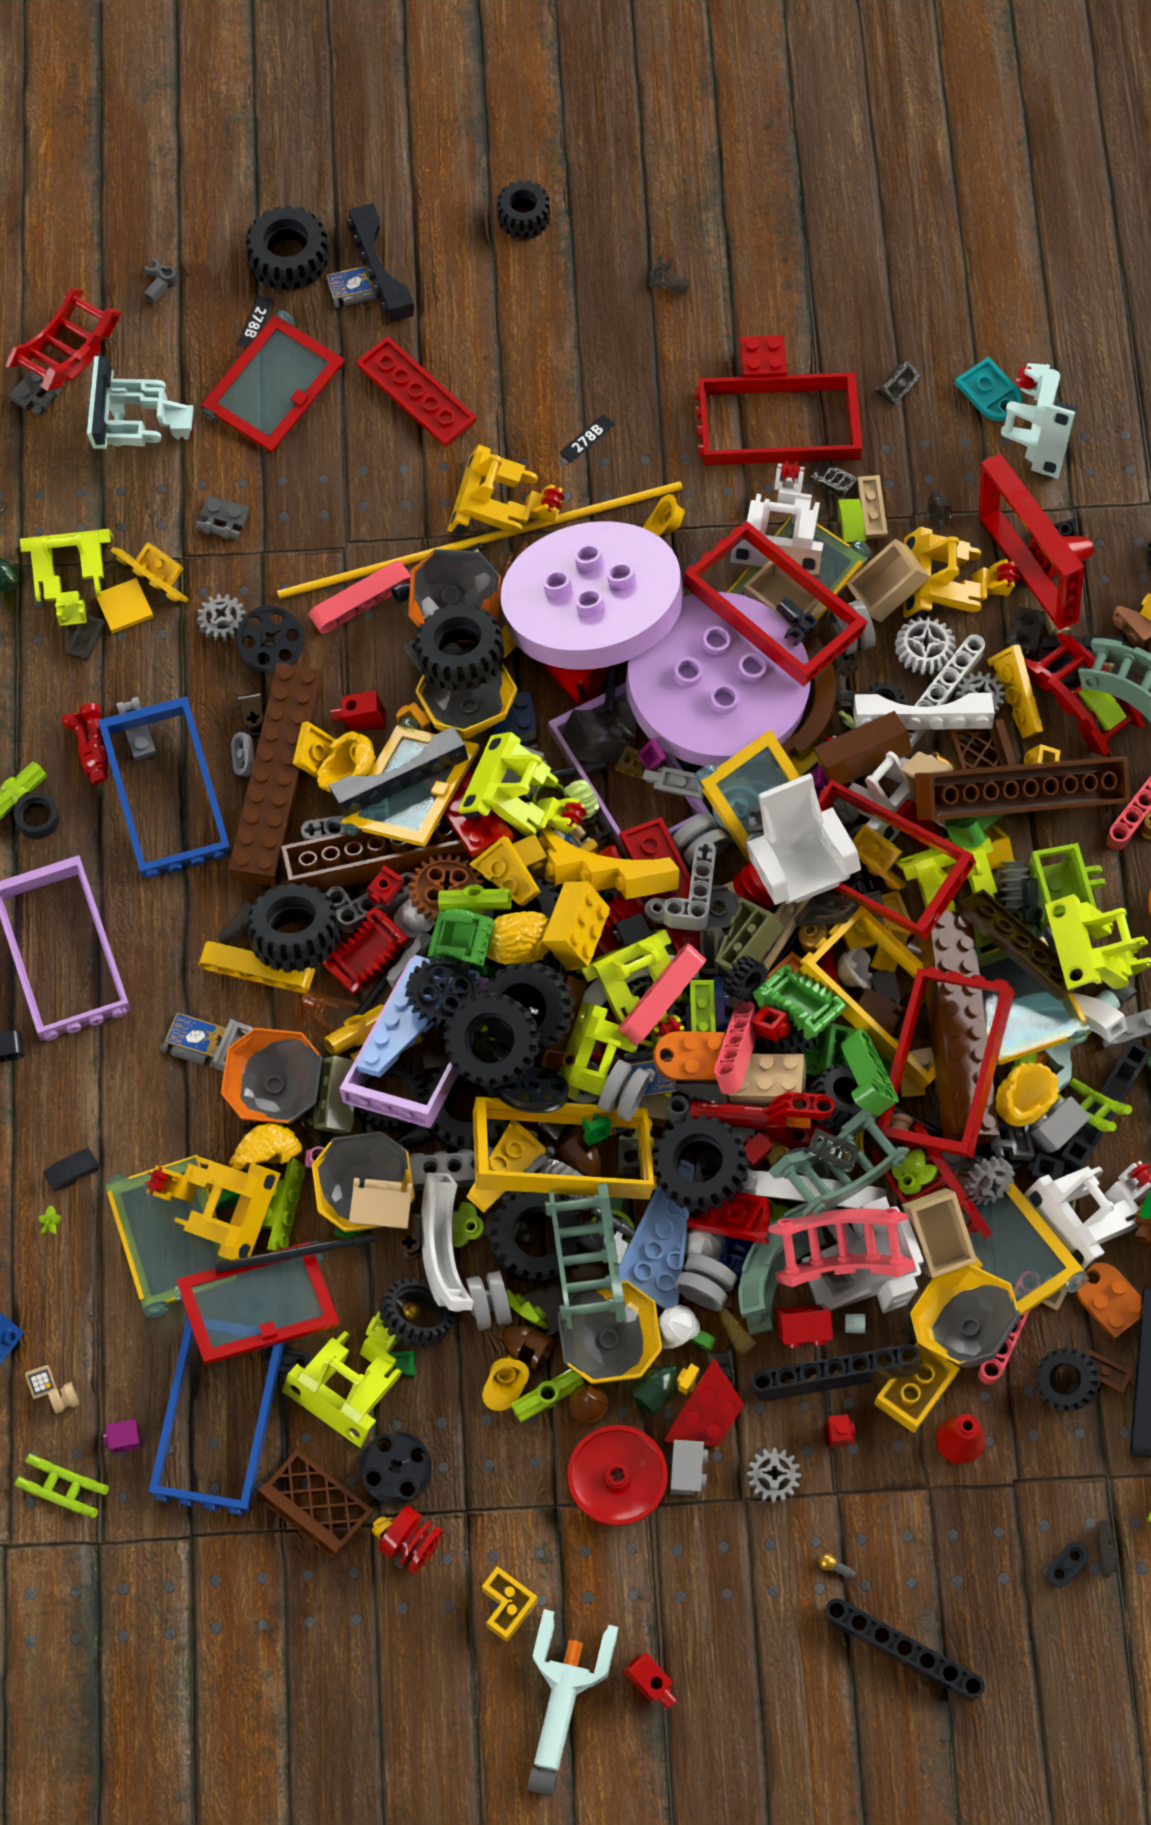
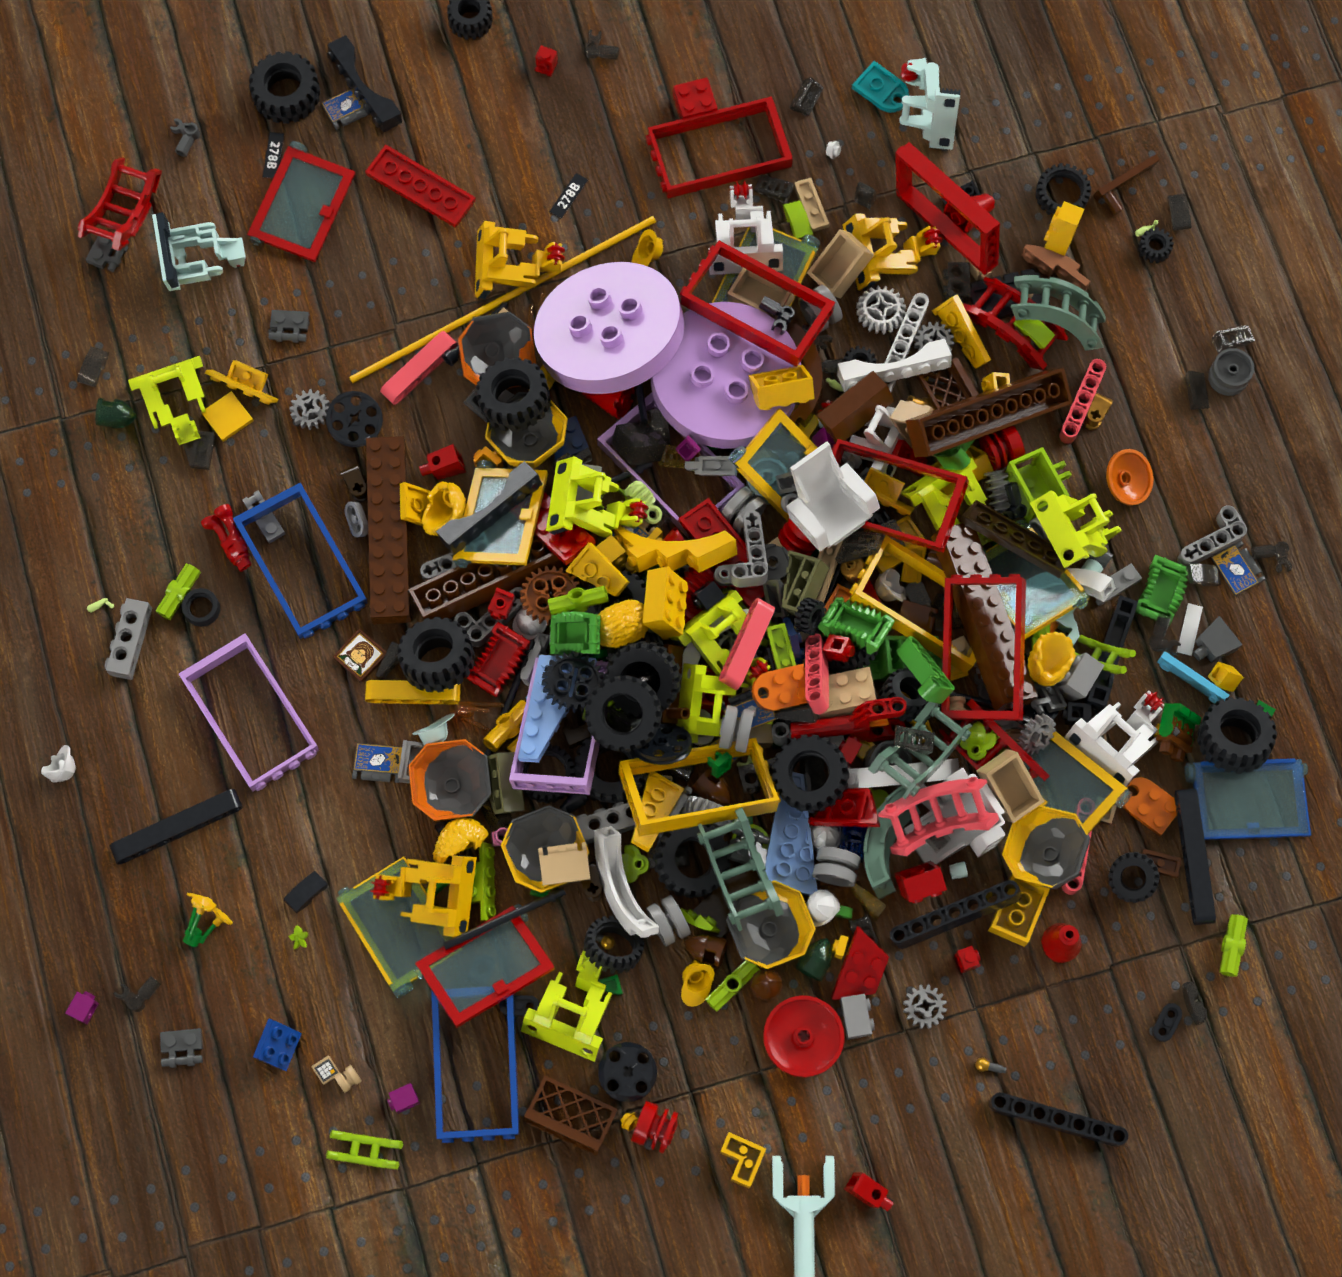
camera: 15 degrees left, 5 degrees up
(206, 911) = (360, 655): none -> tile
(270, 1019) = (435, 732): none -> light aqua piece
(598, 823) = (658, 514): none -> yellowish green plate
(599, 279) = (546, 60): none -> red brick
(779, 706) = (782, 387): none -> yellow slope
(914, 449) = (833, 149): none -> white plate
(1035, 834) = (1002, 447): none -> red wheel

